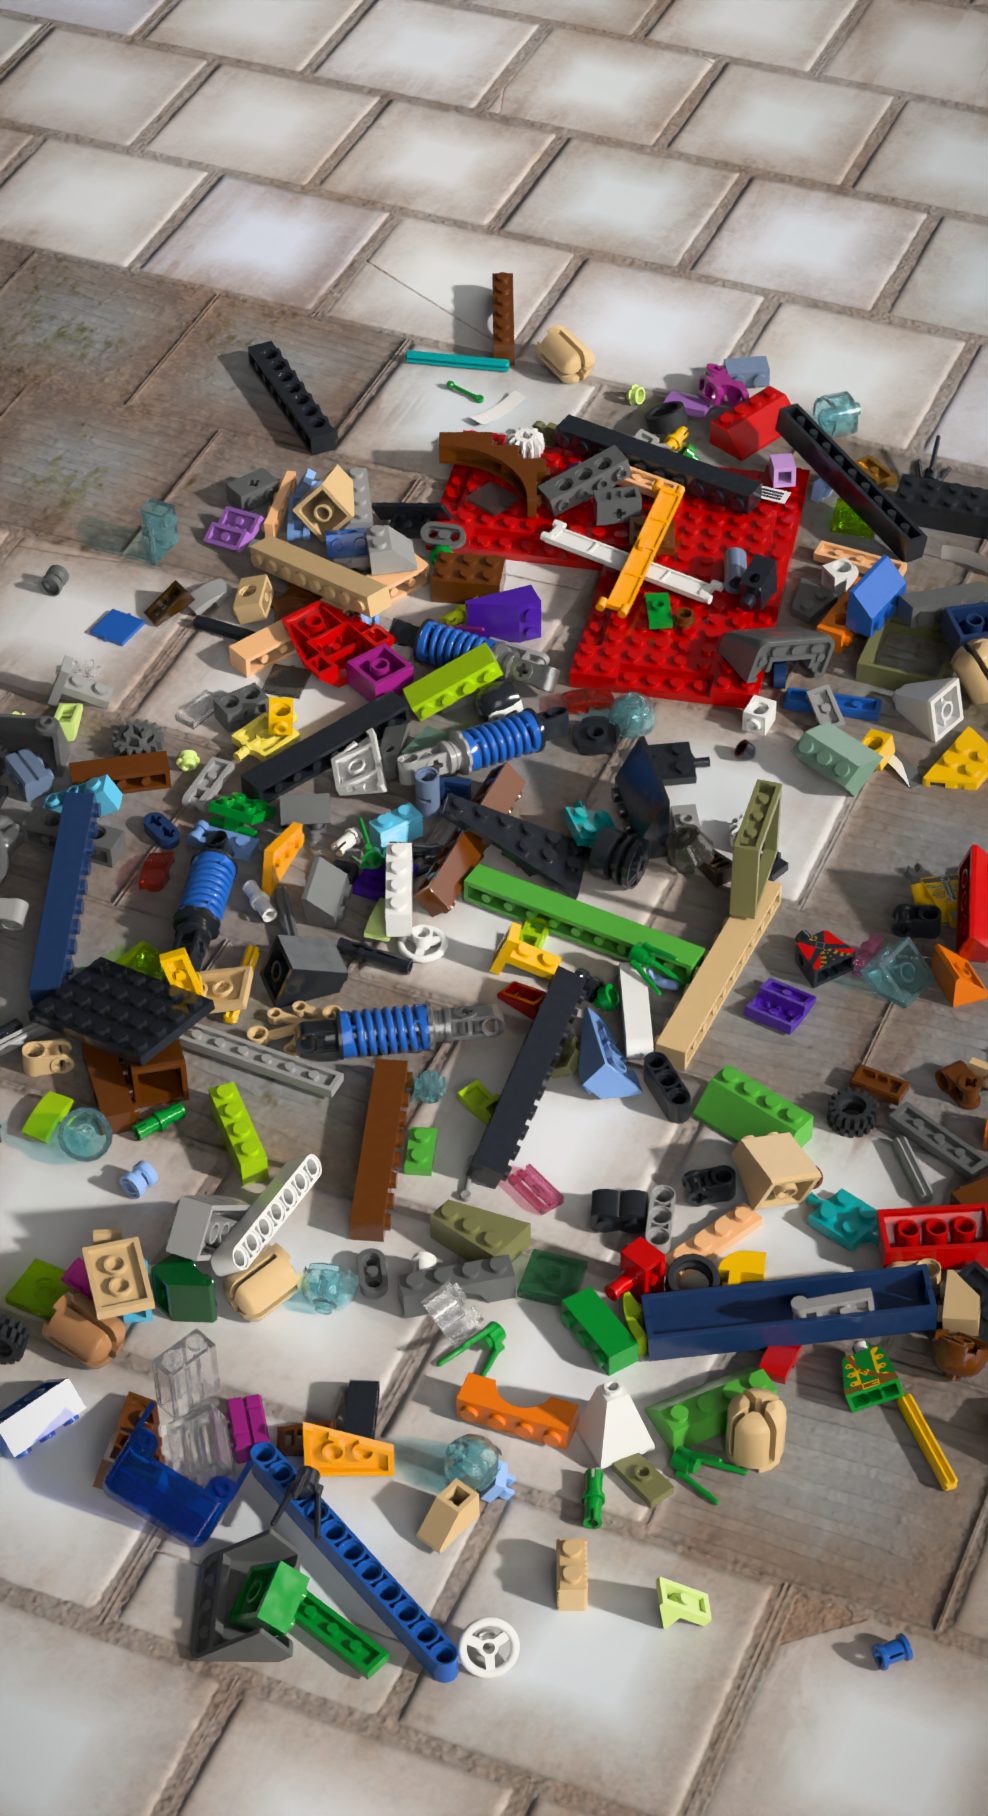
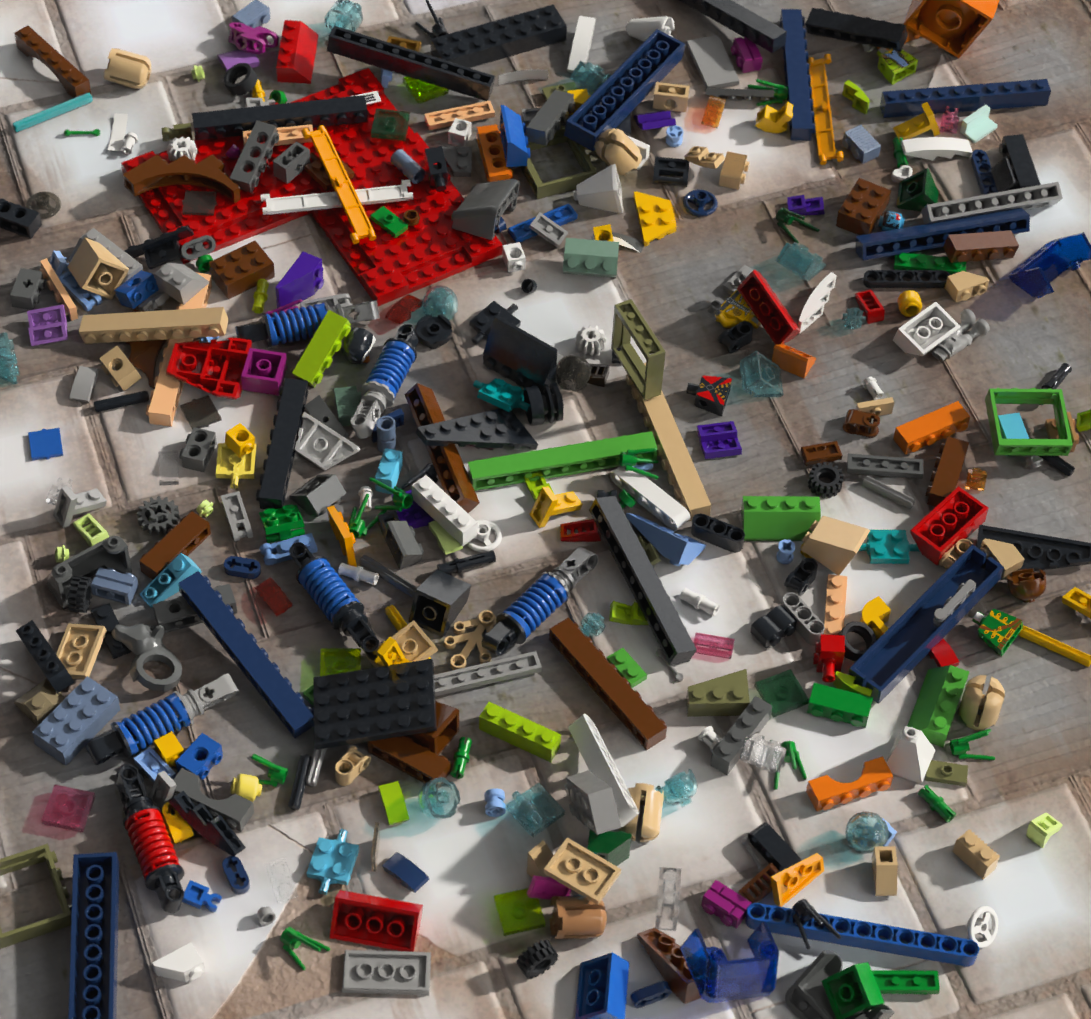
camera: 45 degrees left, 10 degrees up
(73, 1454) = (650, 994): none -> dark blue beam
(158, 1208) = (535, 809): none -> clear light blue plate
(175, 600) = (72, 408): dark brown slope -> none
(199, 1445) = (721, 933): clear brick -> none
(306, 856) = (357, 525): none -> green plant
(355, 428) = (42, 202): none -> clear smoke piece
(372, 1273) = (687, 761): dark grey plate -> none
(501, 418) = (130, 140): none -> white pin
(569, 1138) = (699, 601): none -> white pin
(727, 1144) = (785, 552): none -> light blue bush
(764, 526) = (390, 124): none -> plate
(782, 470) = (361, 78): lavender brick -> none
(866, 952) = (734, 373): clear pink plate -> none

